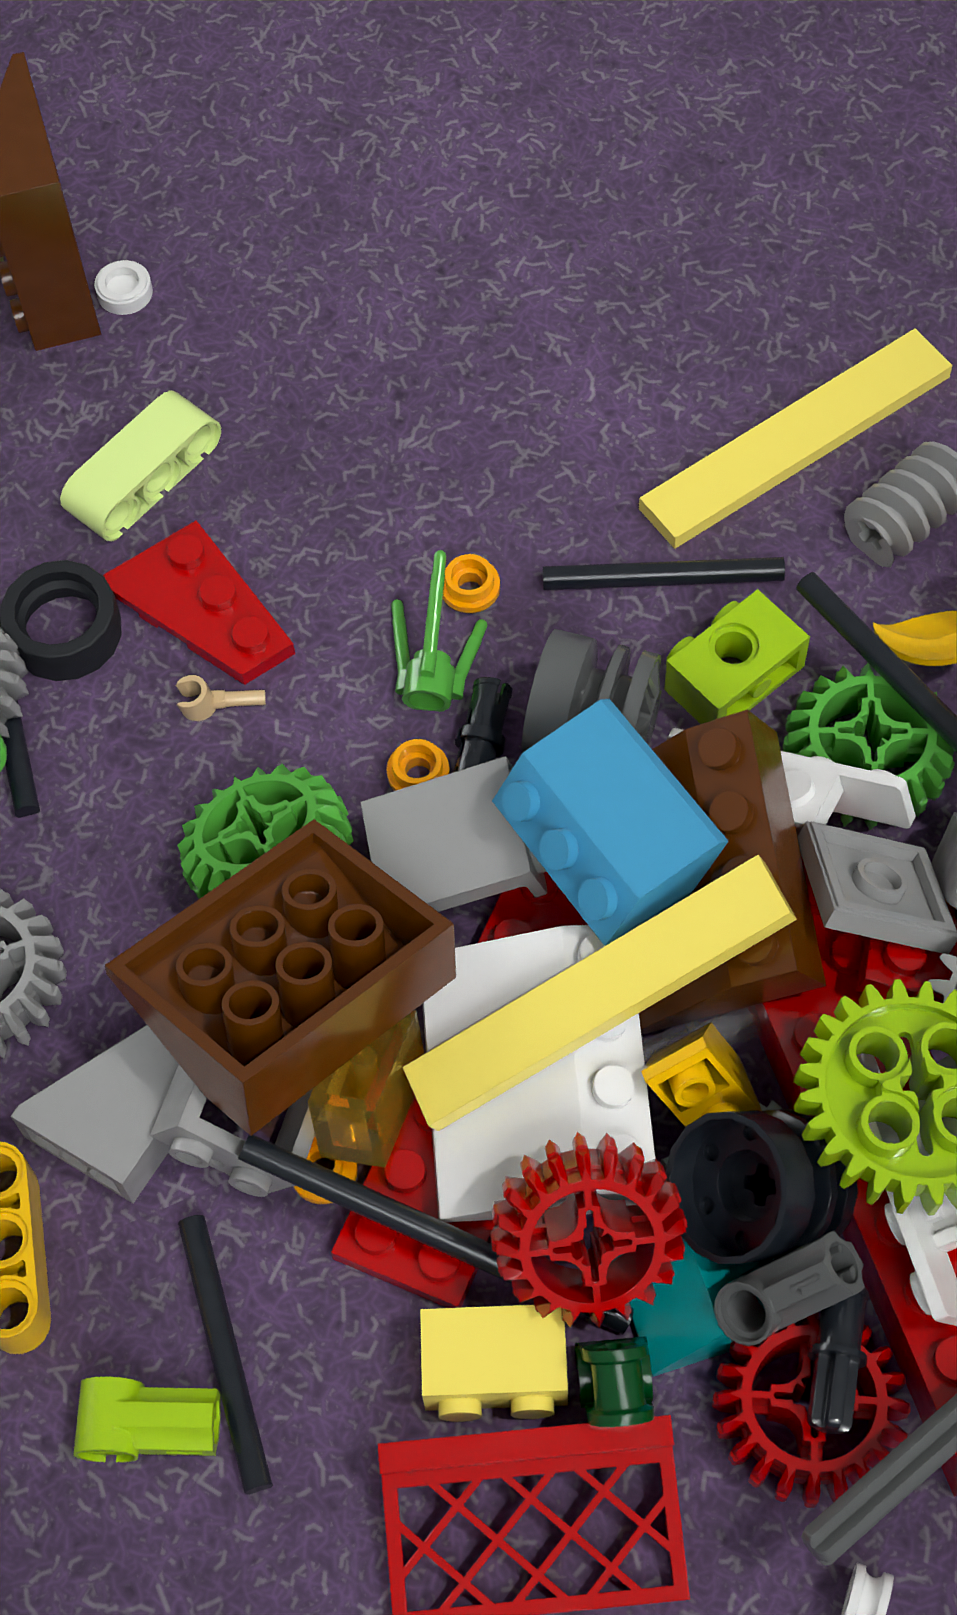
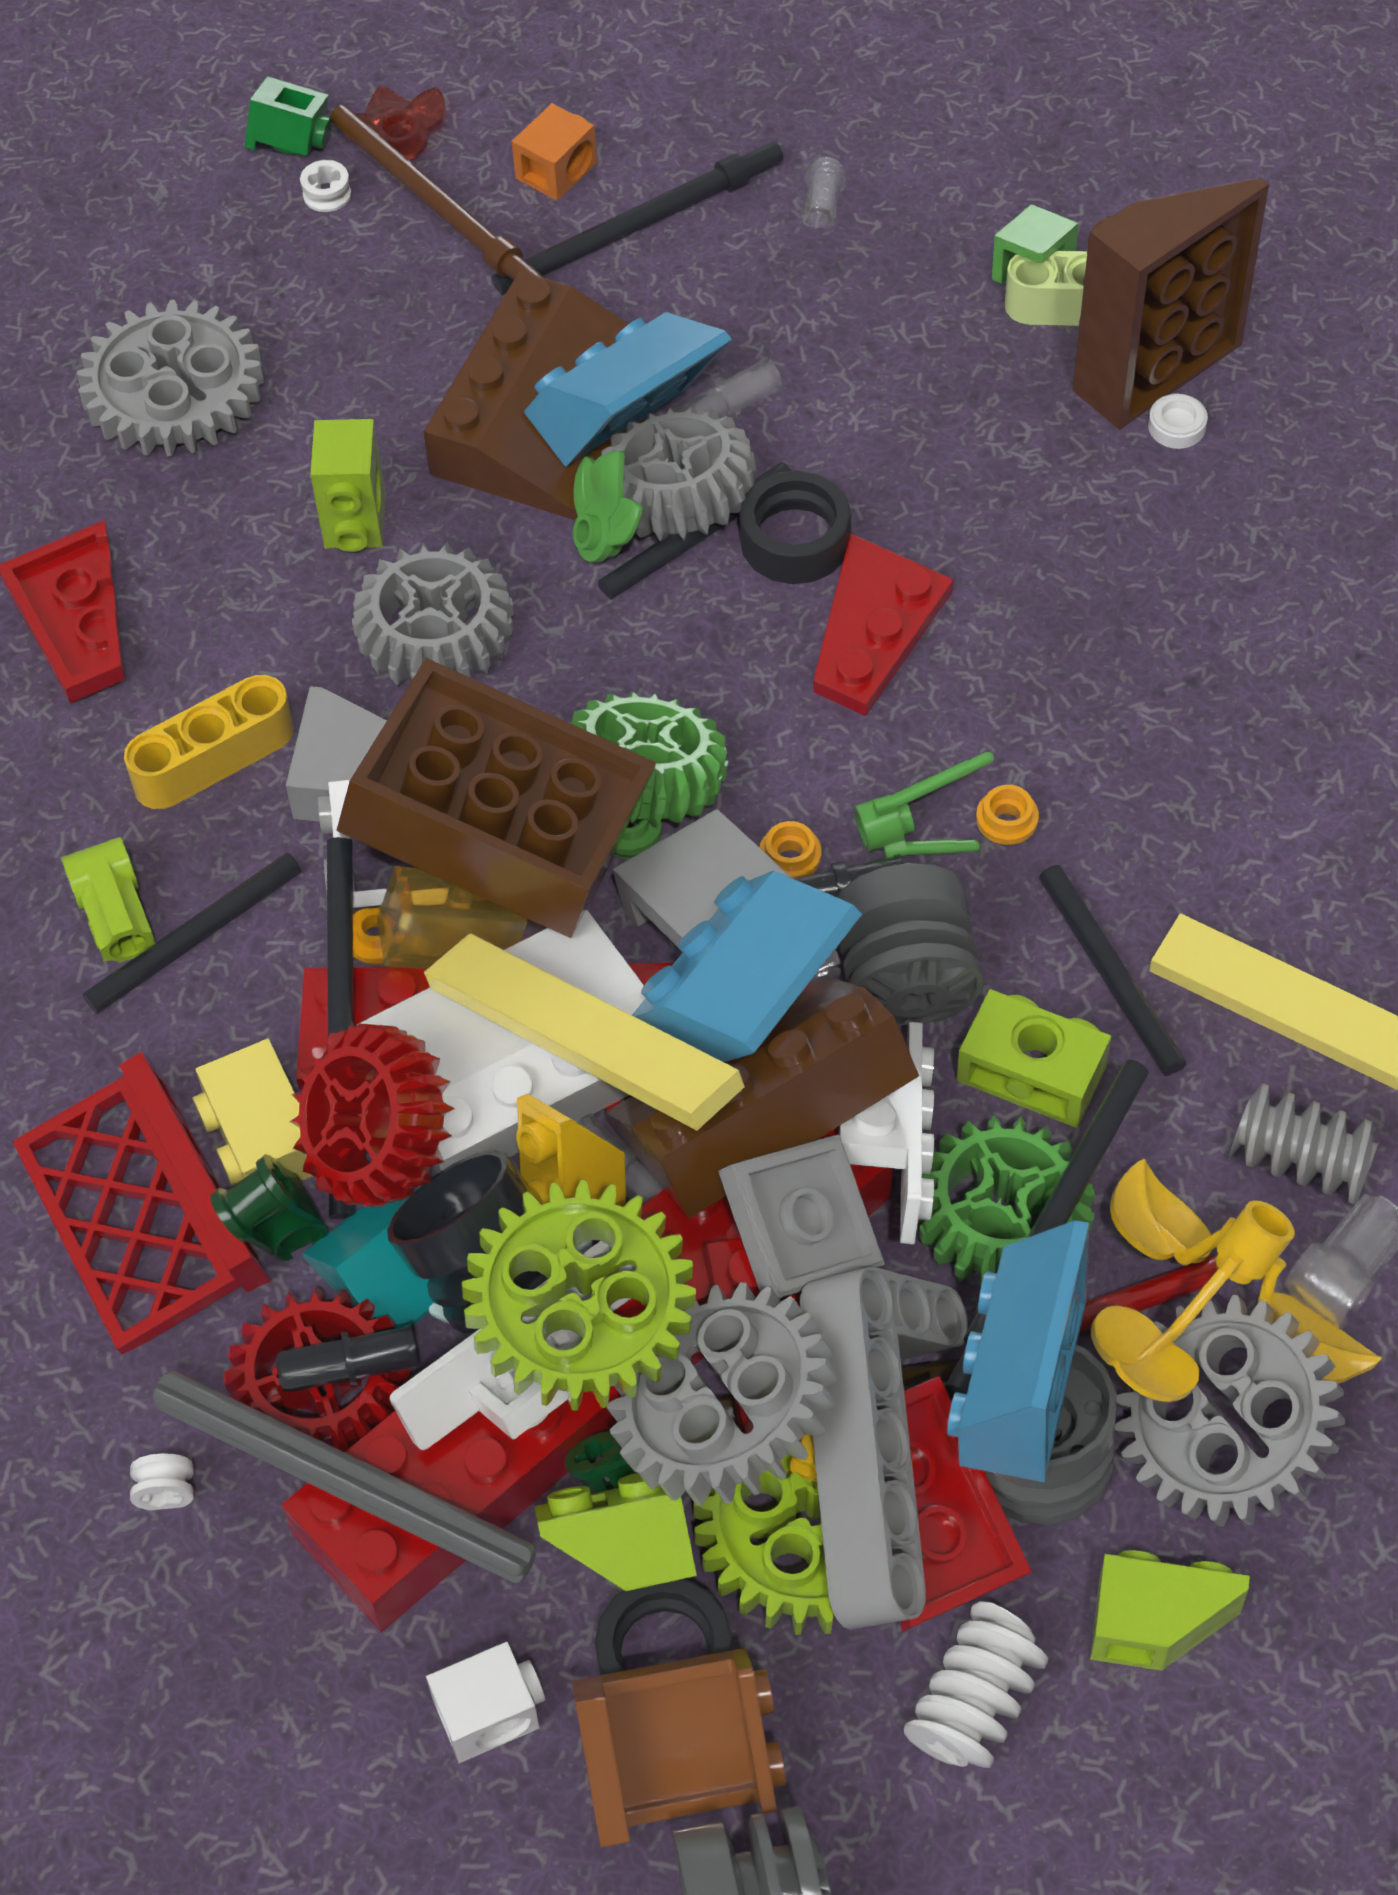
camera: 65 degrees right, 5 degrees down
(139, 463) = (987, 512): yellowish green beam -> none
(209, 700) = (779, 669): tan hand -> none
(789, 1289) = (386, 1291): dark grey piece -> none

